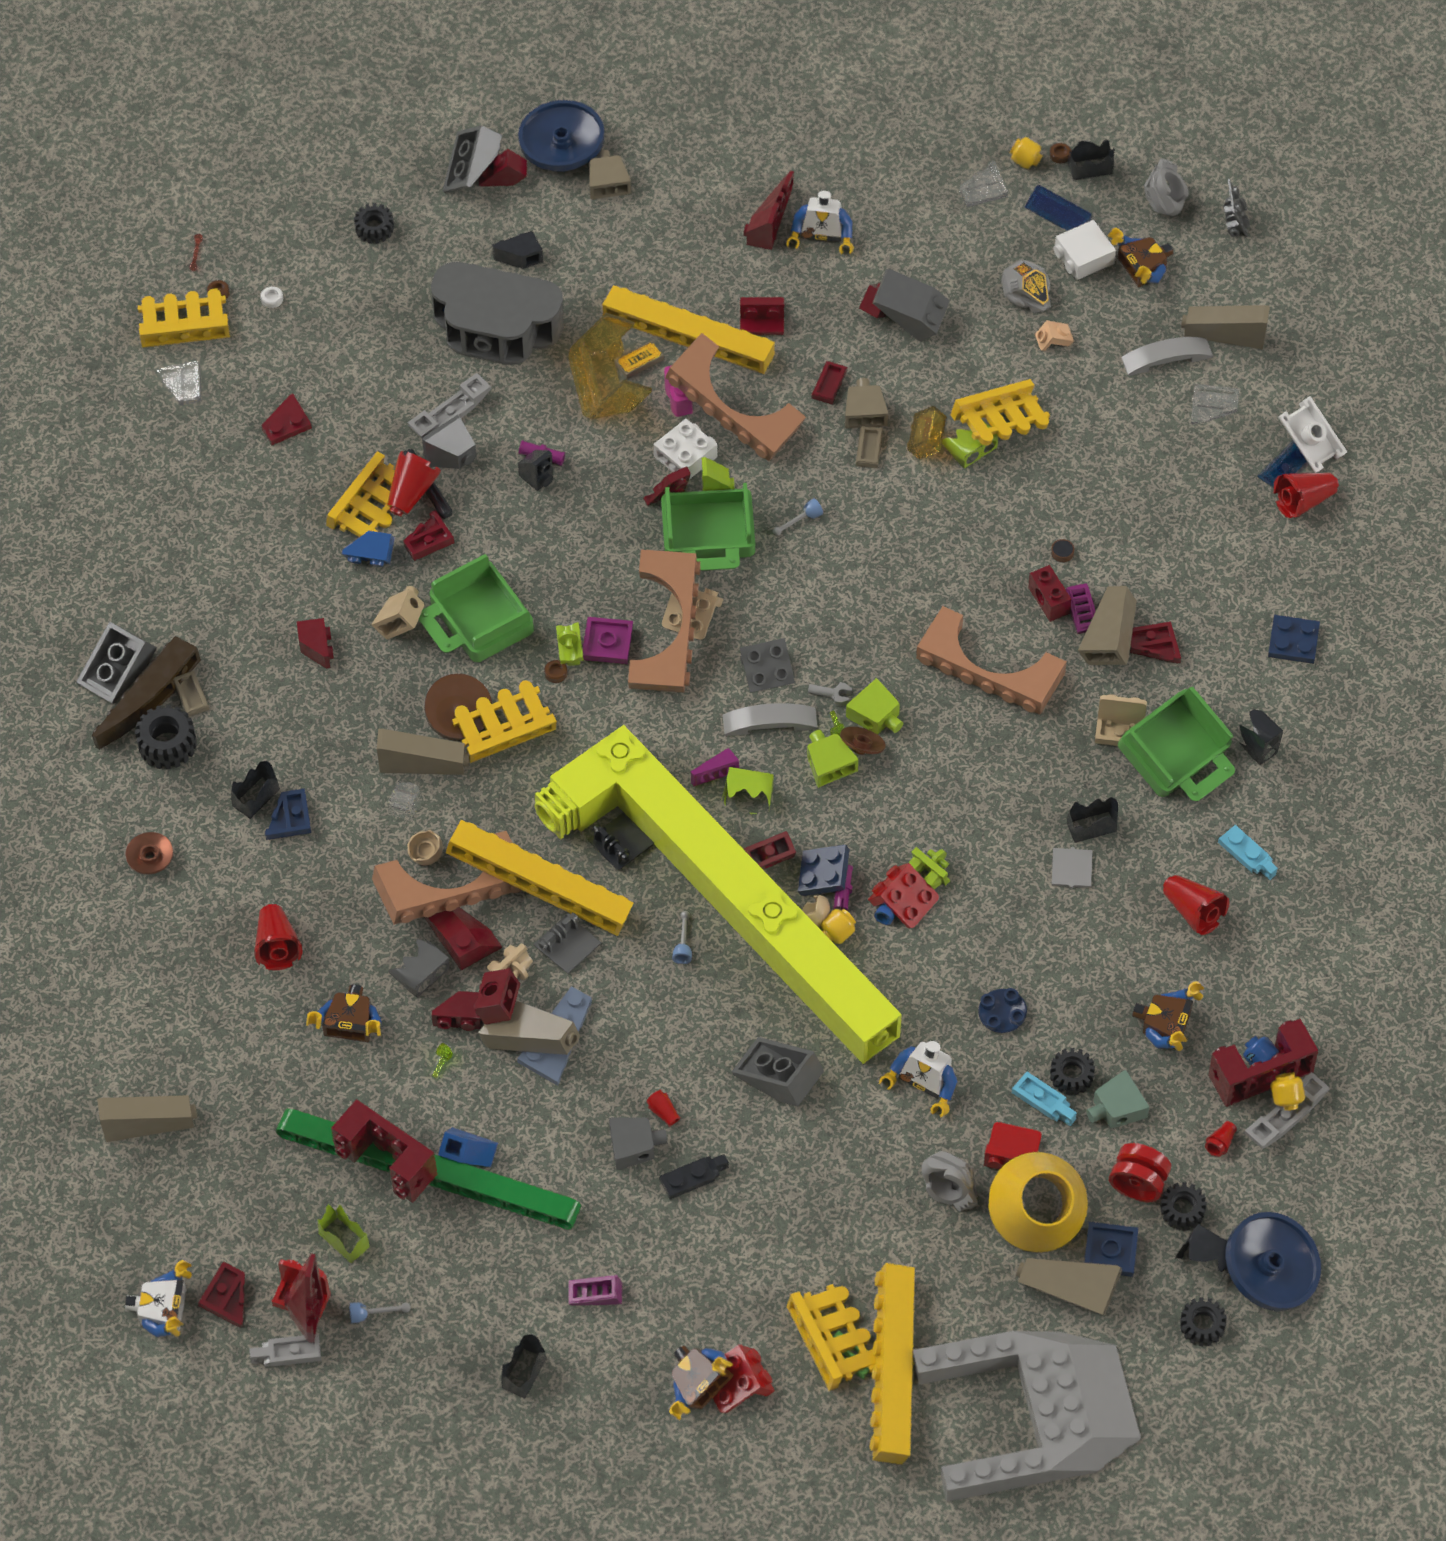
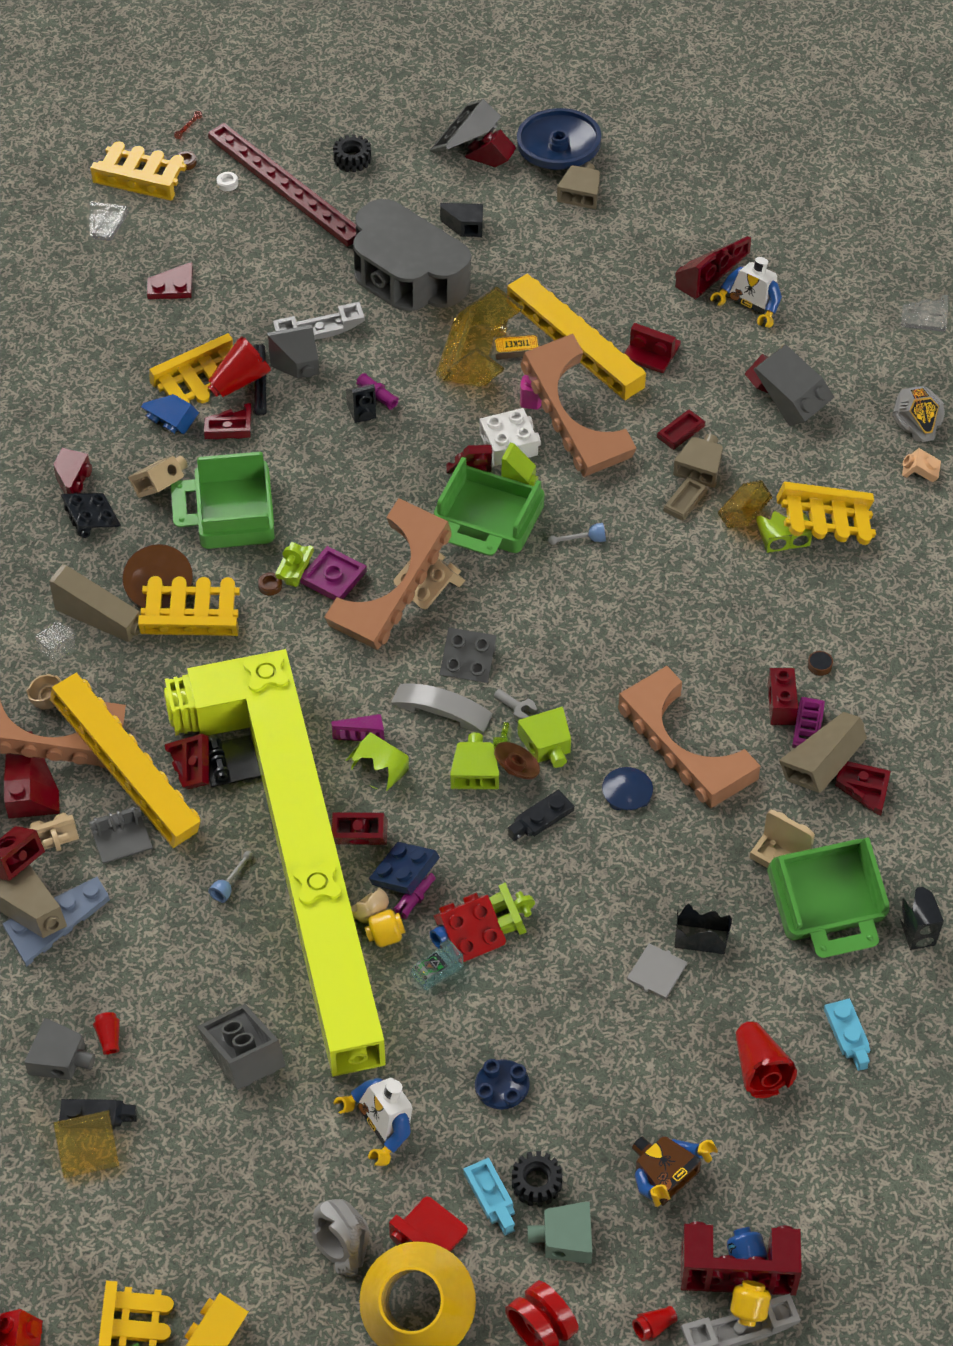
camera: 25 degrees right, 5 degrees down
(329, 279) = (284, 183): none -> plate
(354, 671) = (89, 512): none -> black hinge
(589, 854) = (191, 760): none -> dark red wing
(703, 1201) = (86, 1144): none -> clear yellow tile
(898, 938) = (438, 965): none -> clear light blue leg
(907, 778) = (541, 816): none -> black hinge
(964, 726) = (627, 788): none -> dark blue dish

